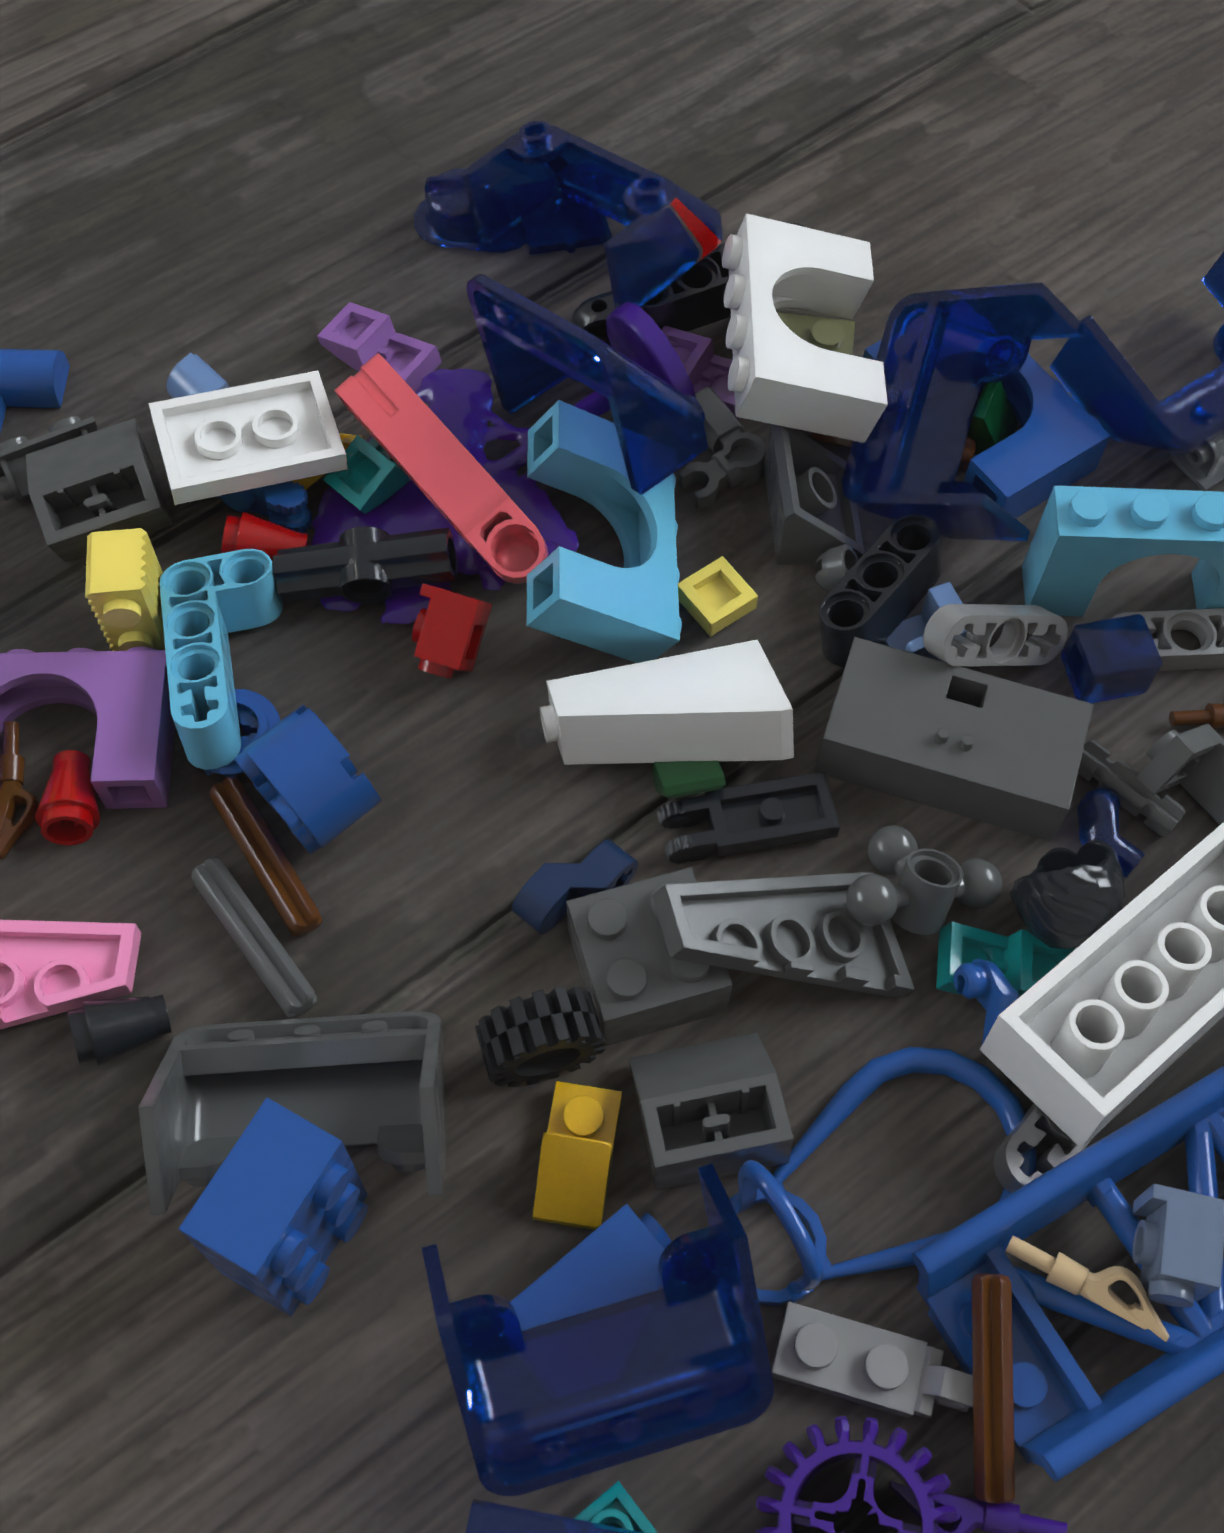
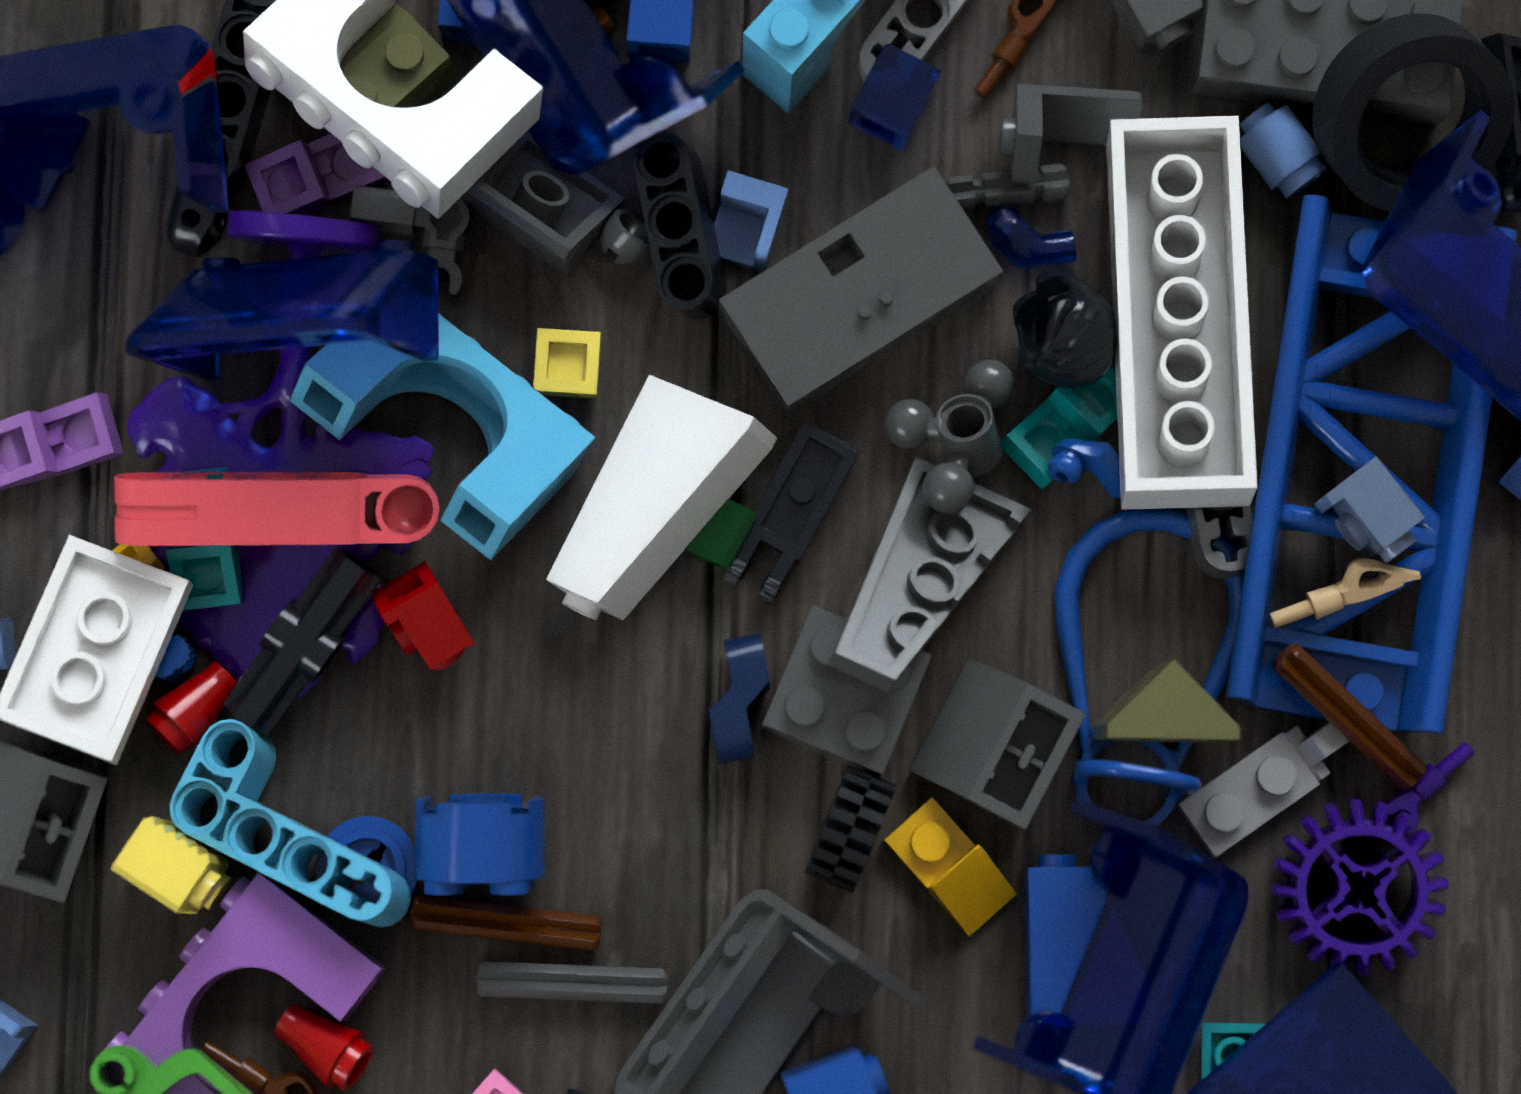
camera: 55 degrees left, 20 degrees up
(850, 1204) = (1166, 708): none -> olive slope
(980, 621) = (807, 179): light grey beam -> none

